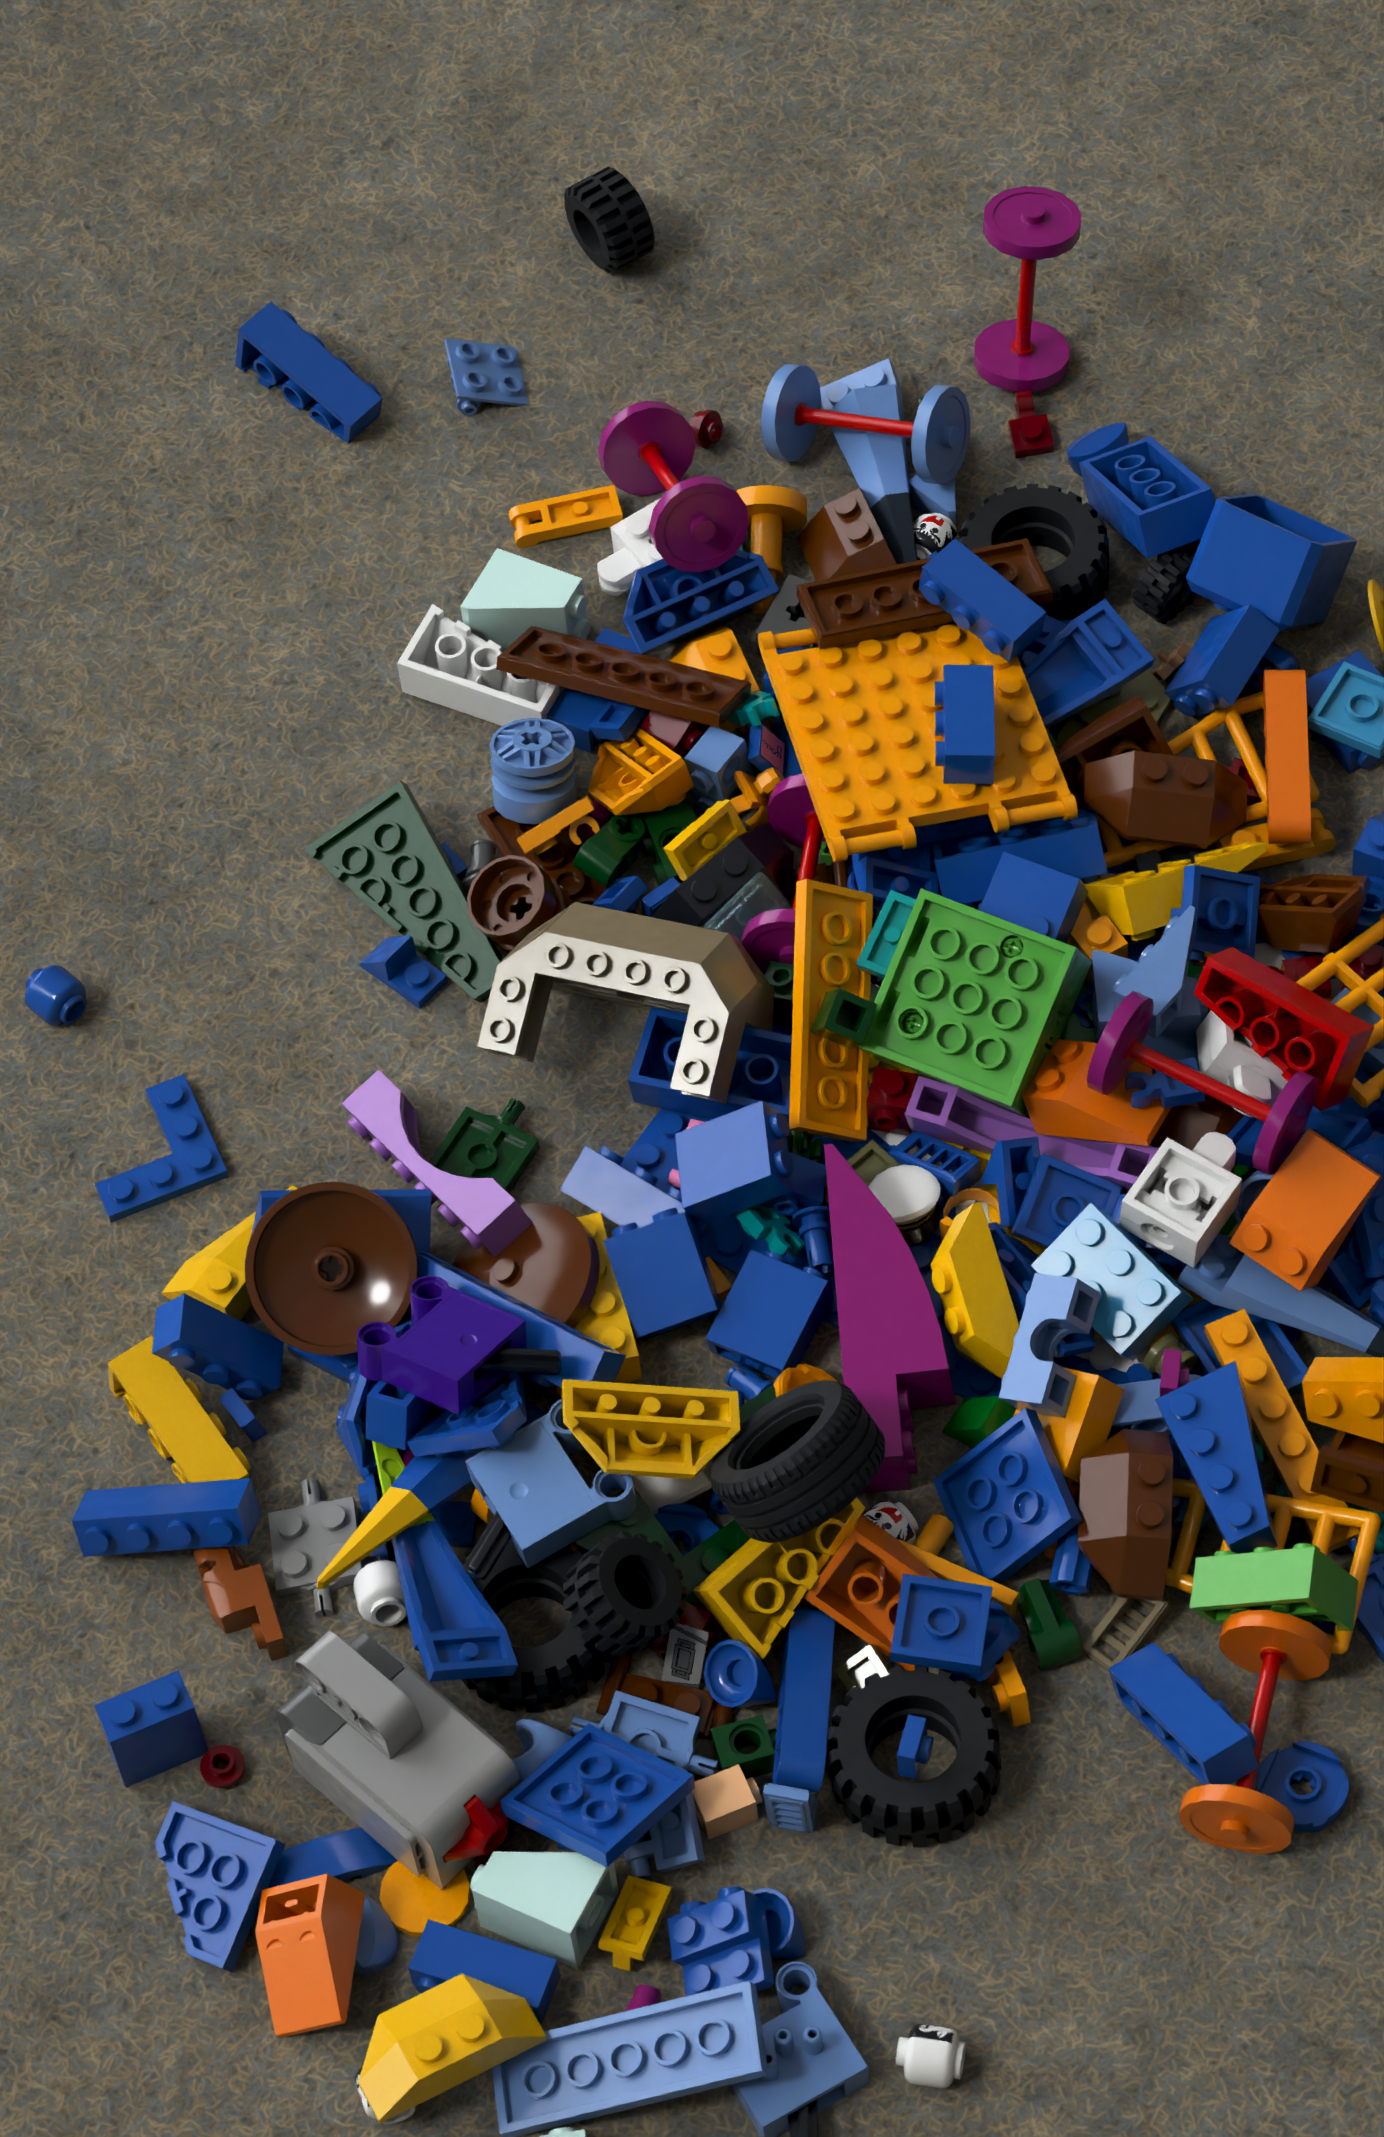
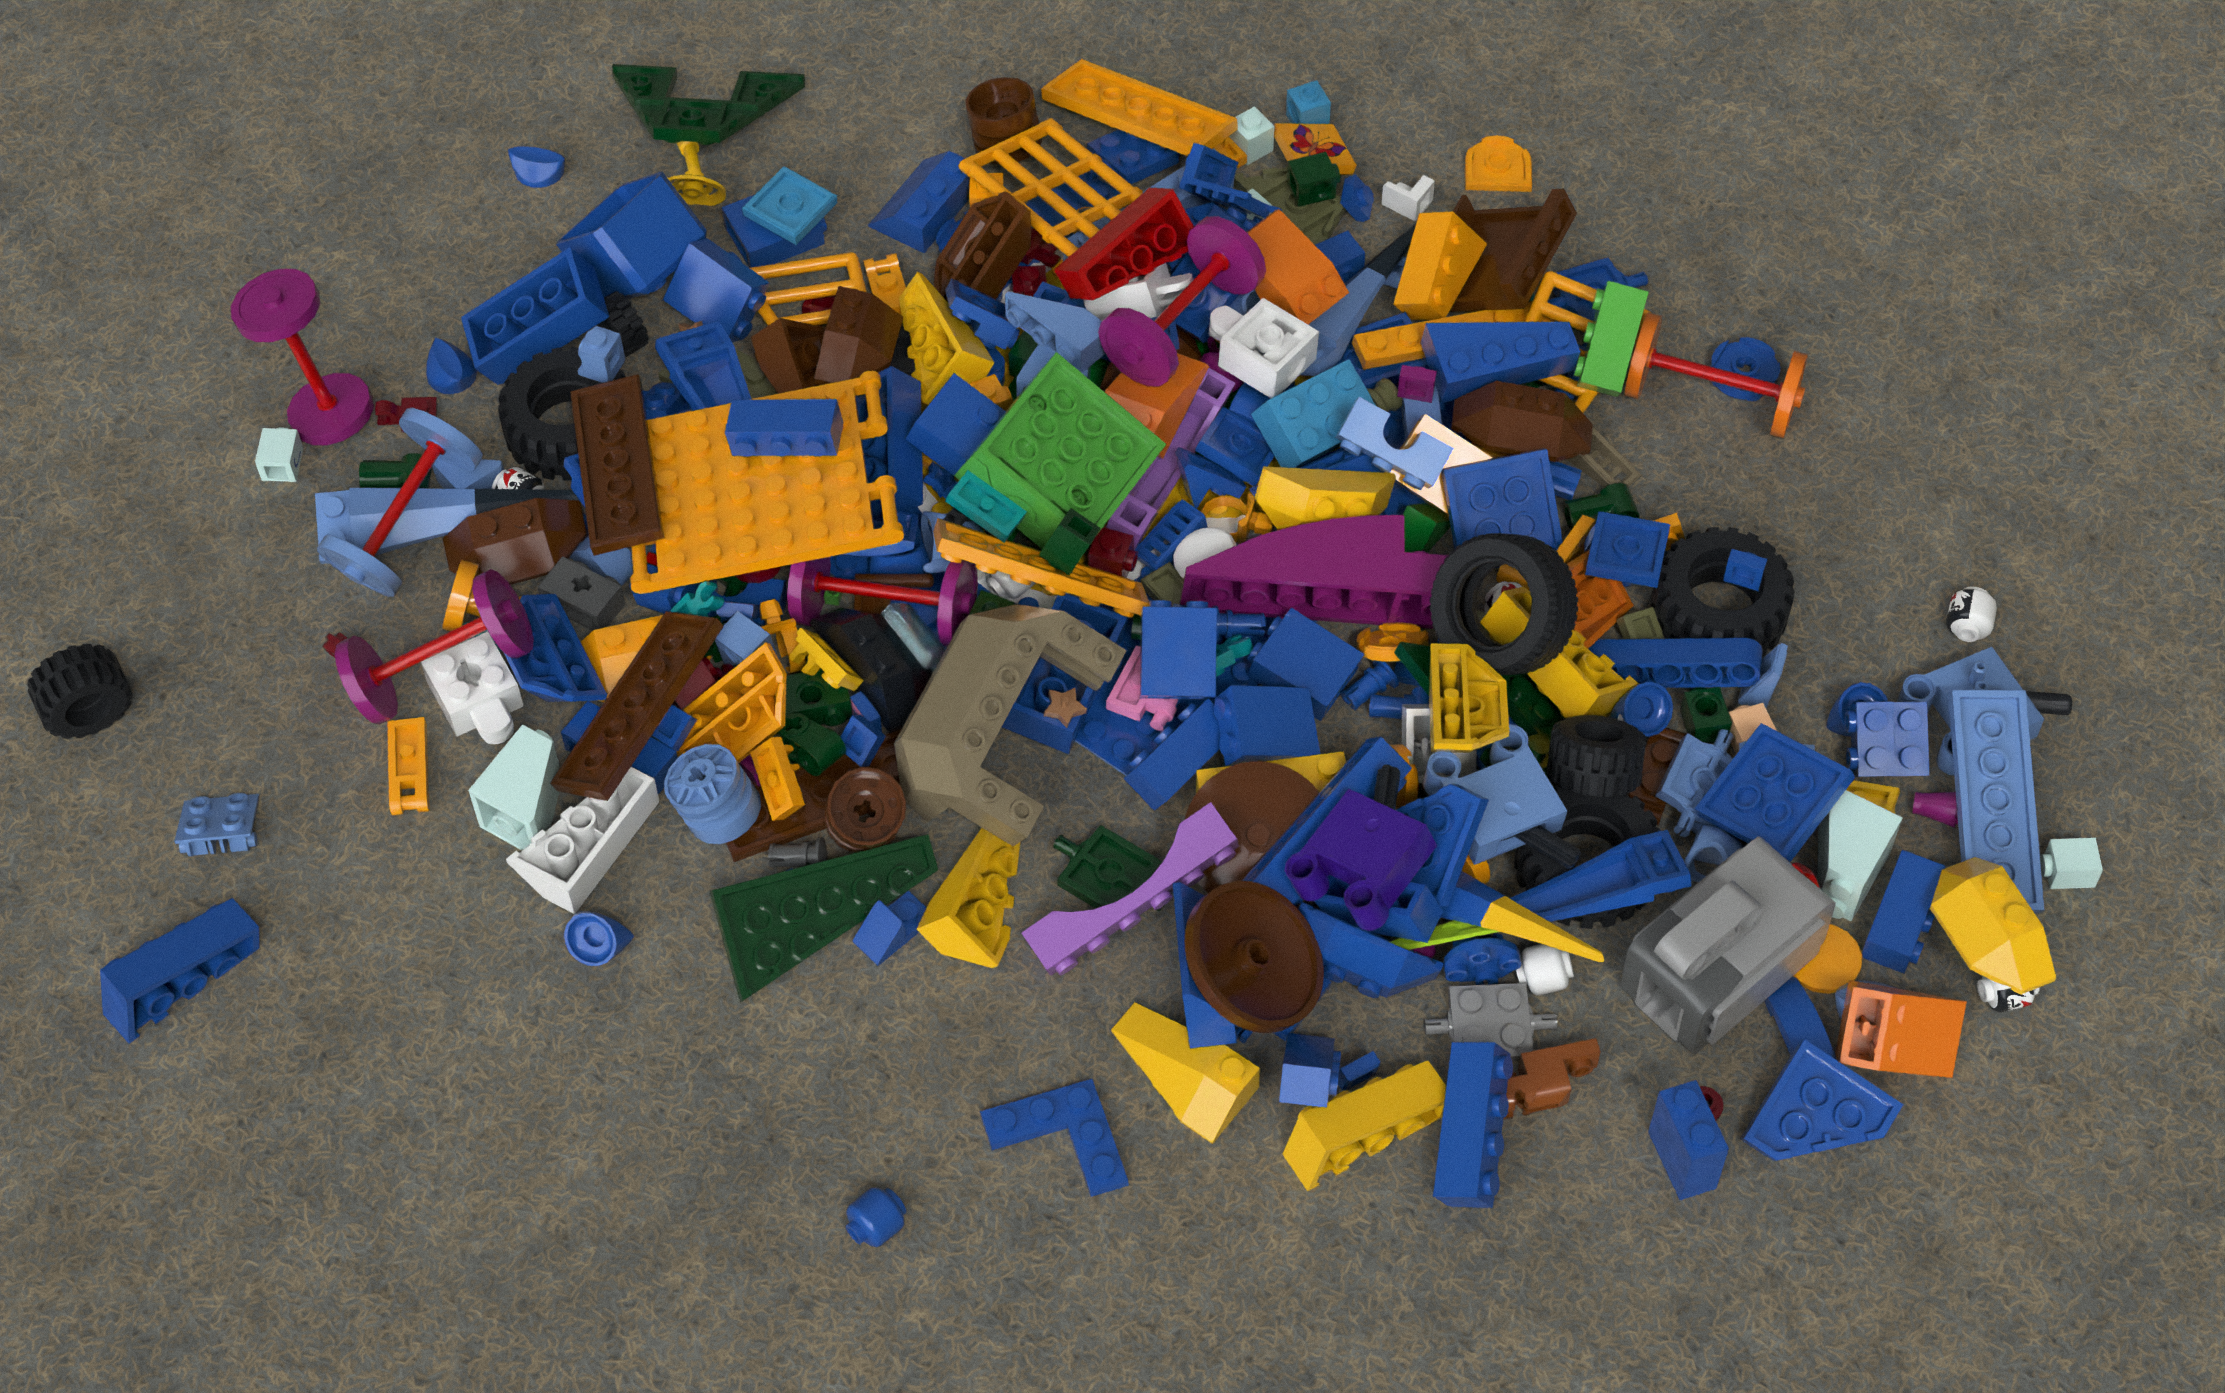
camera: 90 degrees left, 0 degrees up
(370, 710) = (595, 938): none -> blue piece
(430, 1033) = (969, 906): none -> yellow wedge
(655, 1063) = (1064, 706): none -> medium nougat piece
(951, 323) = (279, 454): none -> light aqua brick
(981, 600) = (650, 409): blue brick -> none
(1077, 542) = (597, 350): none -> medium blue brick
(1184, 1716) = (1703, 416): blue brick -> none
(1286, 757) = (825, 257): orange beam -> none

